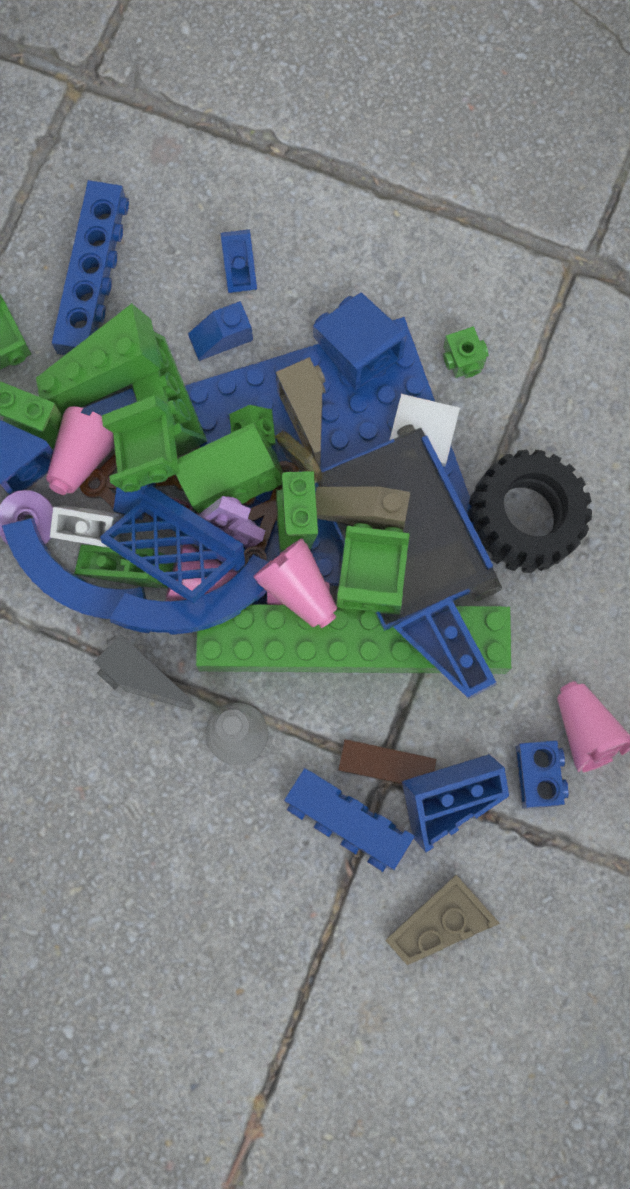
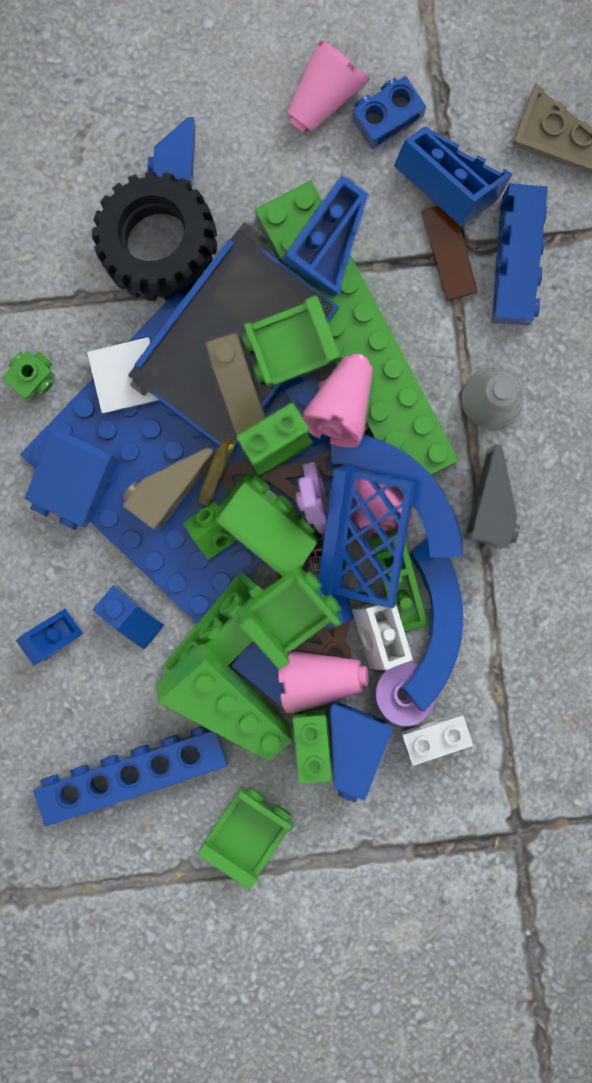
camera: 125 degrees left, 10 degrees up
(593, 569) = (176, 152): none -> blue slope

